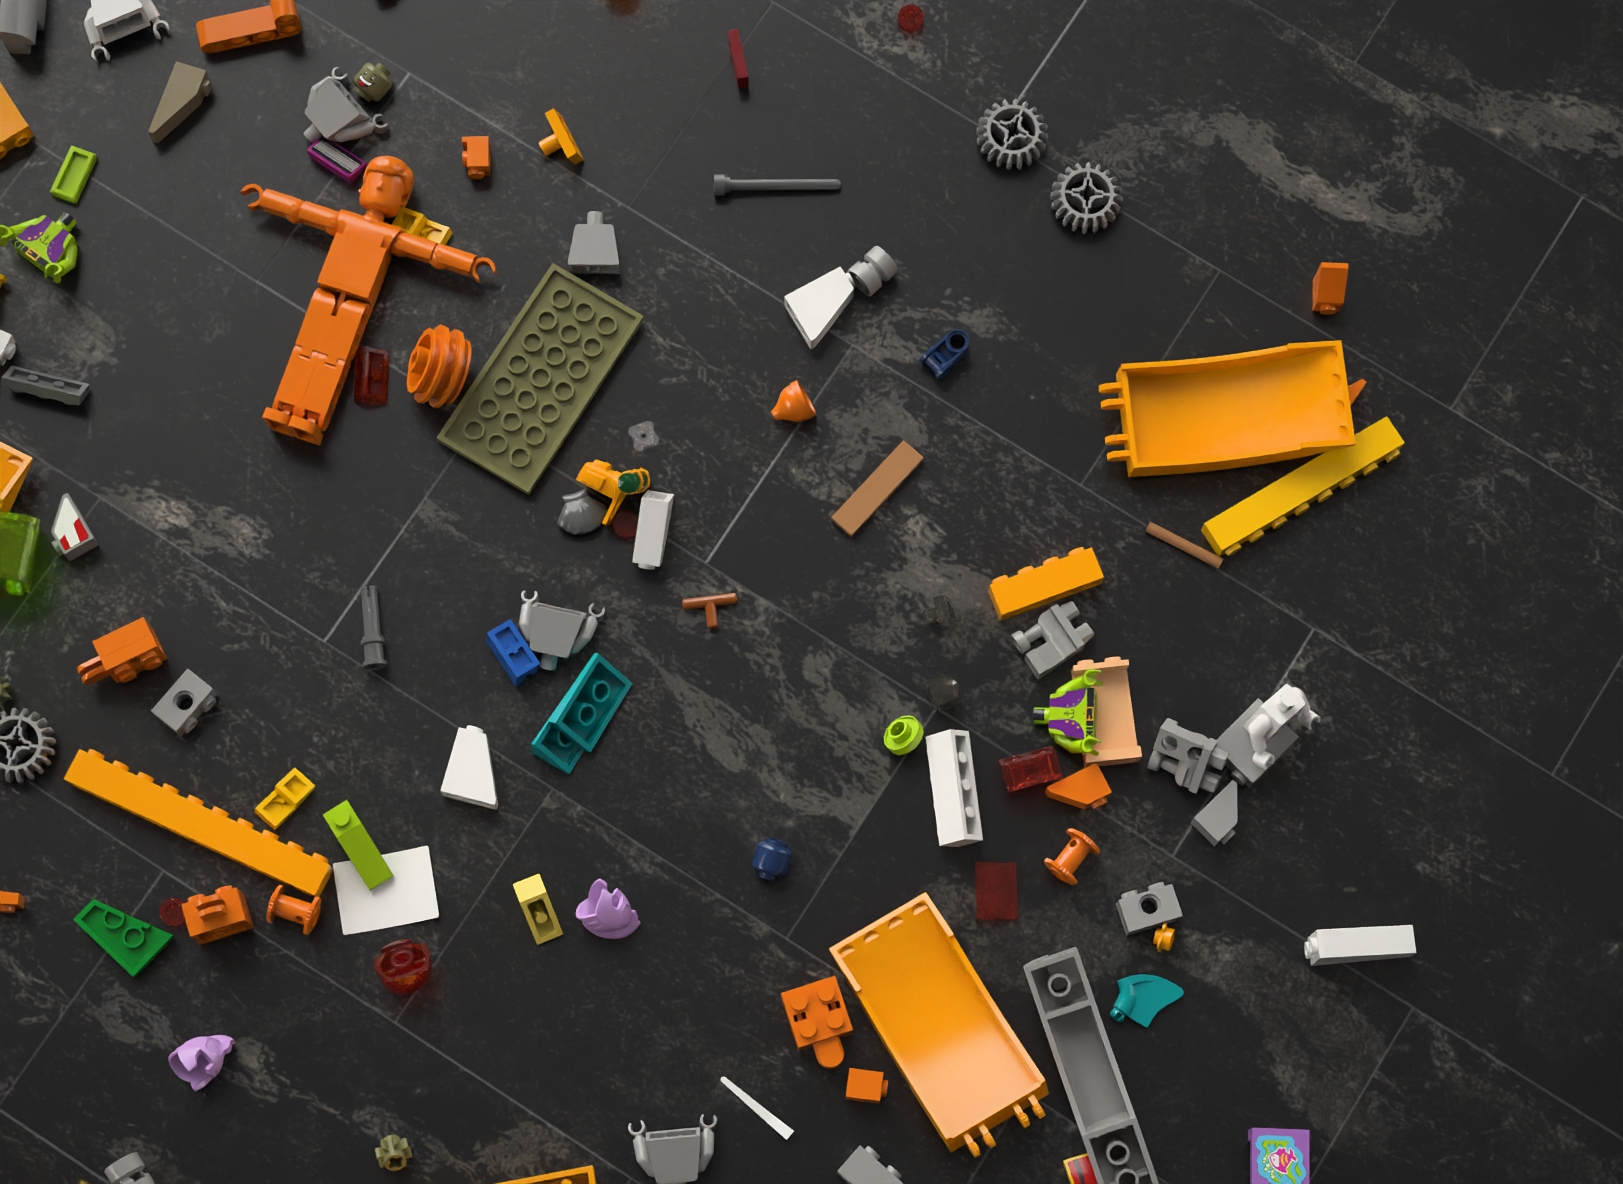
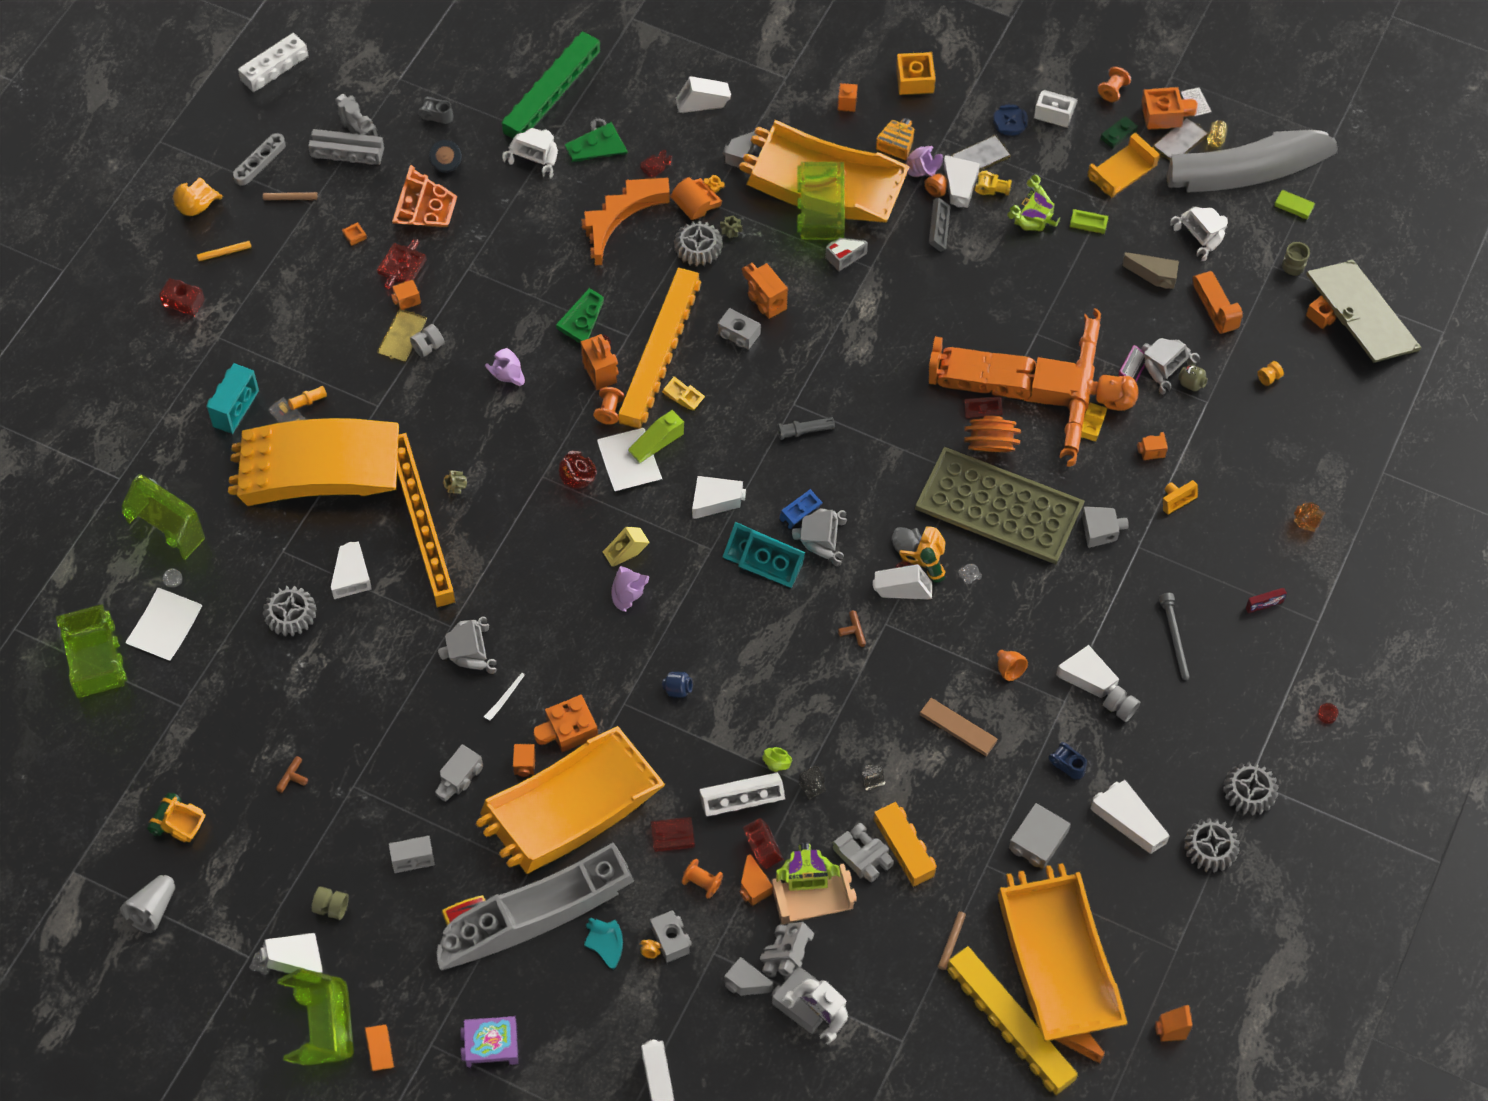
camera: 85 degrees right, 15 degrees down
(1034, 290) = (1130, 816): none -> white slope
(1052, 409) = (1039, 836): none -> light grey brick

